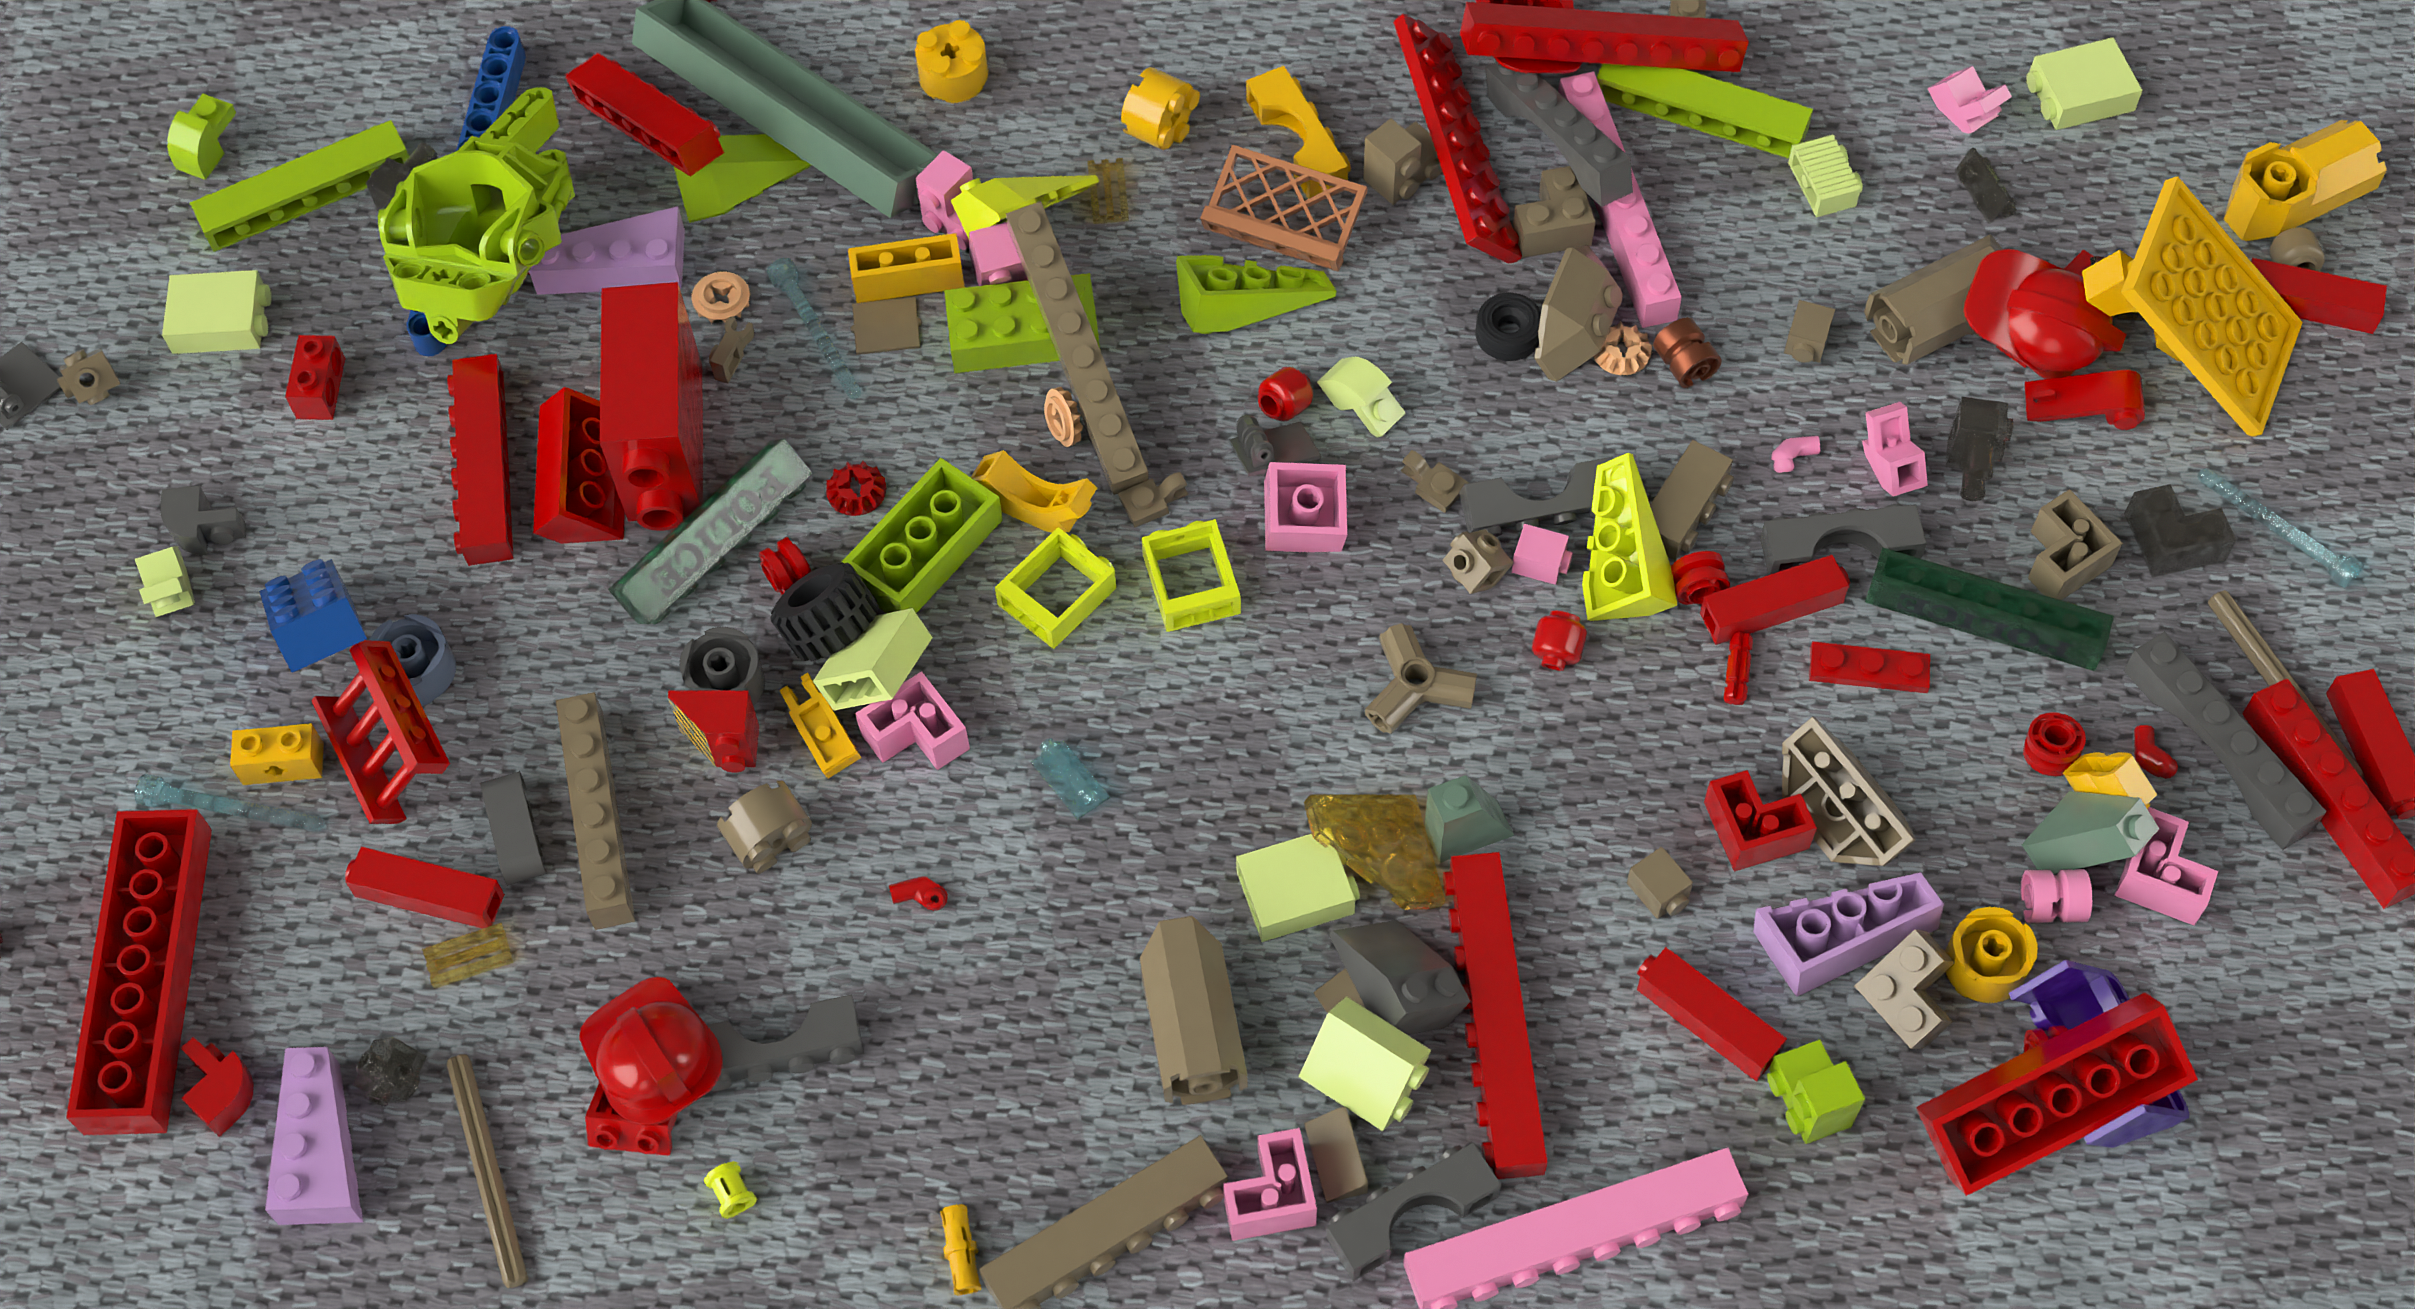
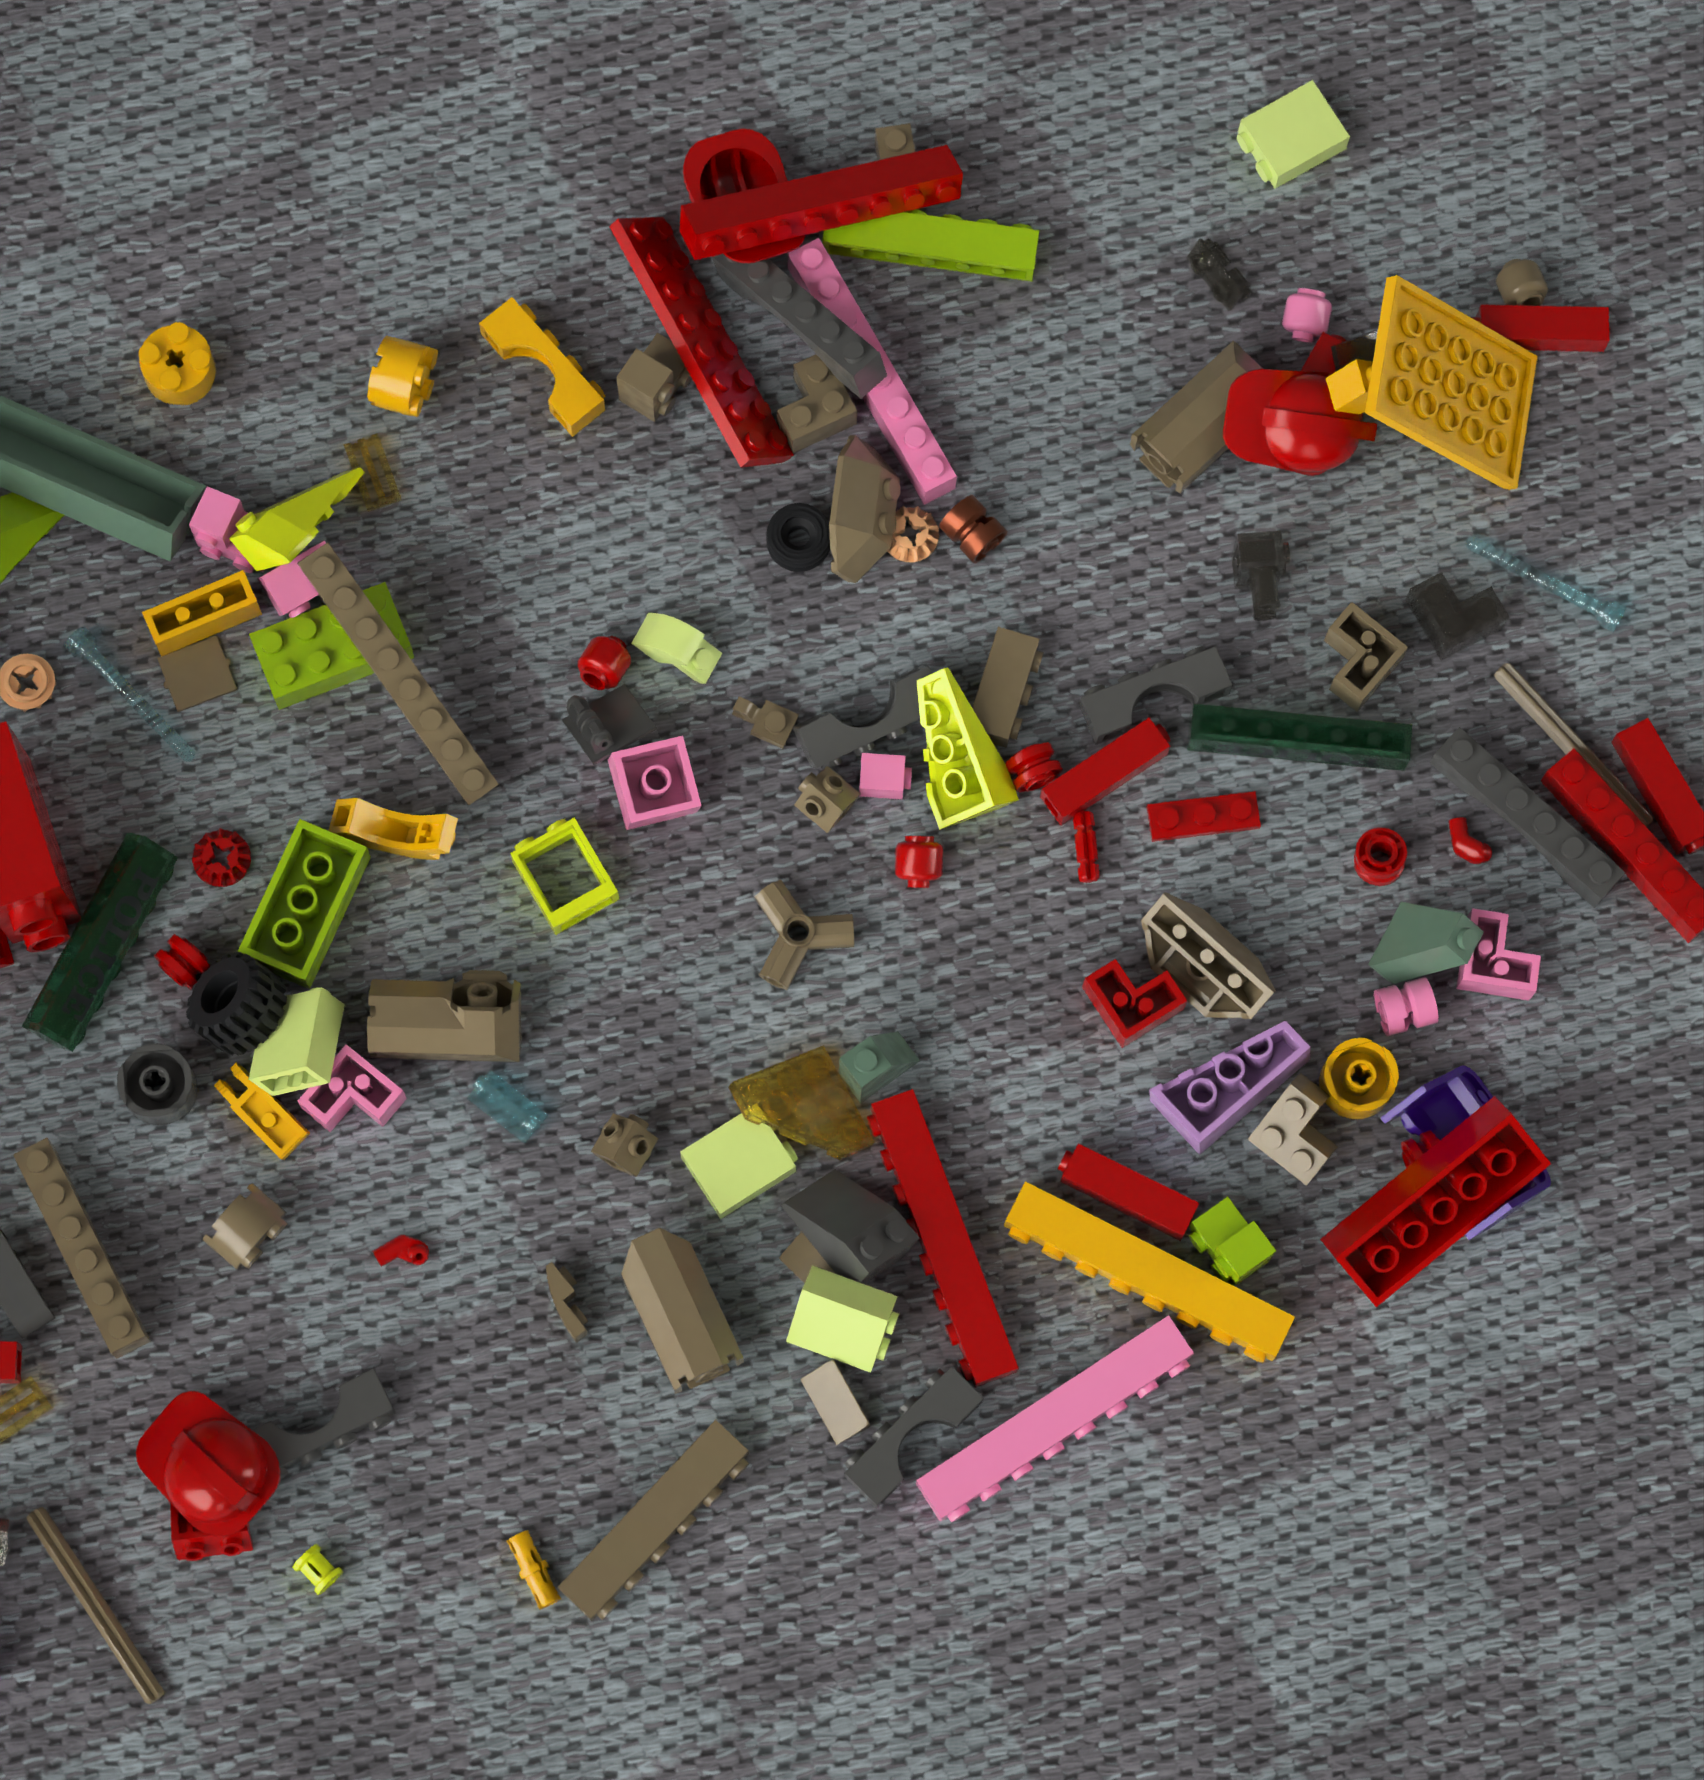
camera: 20 degrees left, 15 degrees up
(719, 725) = (173, 1141): red slope -> none
(729, 353) = (53, 748): dark tan plate -> none
(1028, 676) = (446, 1020): none -> dark tan brick
(1034, 616) = (425, 951): neon yellow window -> none
(1062, 417) = (400, 740): light nougat gear -> none
(1073, 968) = (561, 1290): none -> dark tan slope
(1148, 502) = (503, 805): dark tan plate -> none
(1181, 838) = (625, 1143): none -> dark tan brick
(1232, 296) = (529, 563): lime wedge -> none
(1273, 236) = (546, 489): nougat fence -> none
(1280, 1198) = (800, 1453): bright pink brick -> none
(1660, 884) = (1060, 1080): dark tan brick -> none
(1717, 1103) = (1148, 1272): none -> yellow brick
(1791, 448) = (1089, 606): bright pink arm -> none
(1809, 332) = (1082, 478): dark tan brick -> none
(1825, 175) = (1065, 297): yellowish green brick -> none
(1890, 452) = (1184, 592): bright pink brick -> none
(1966, 101) = (1183, 180): bright pink brick -> none
(2068, 235) = (1307, 314): none -> bright pink head
(2109, 393) = (1352, 486): red door -> none
(2110, 775) = (1434, 888): yellow brick -> none
(2303, 179) = (1515, 206): yellow brick -> none

